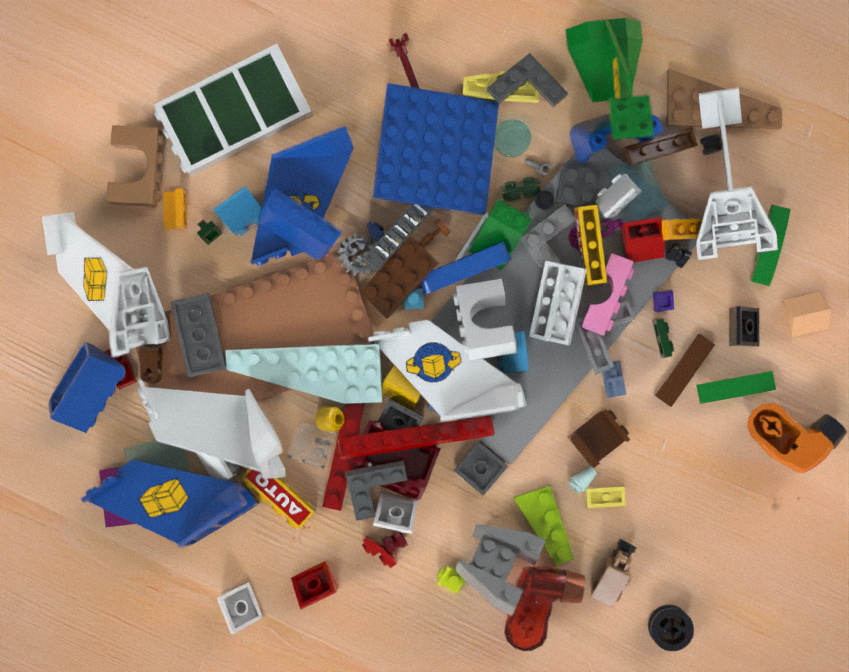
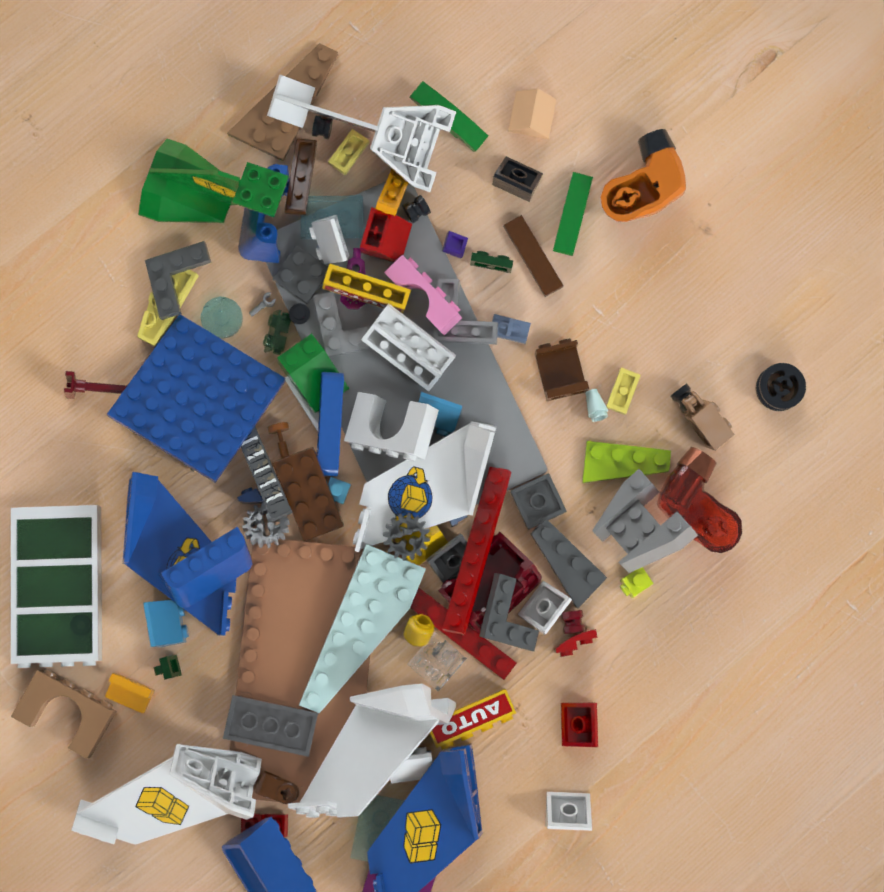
camera: 65 degrees left, 5 degrees down
(400, 363) = (417, 542): none -> dark grey gear
(437, 523) = (572, 568): none -> dark grey wing
(700, 176) = (348, 152): none -> light yellow plate

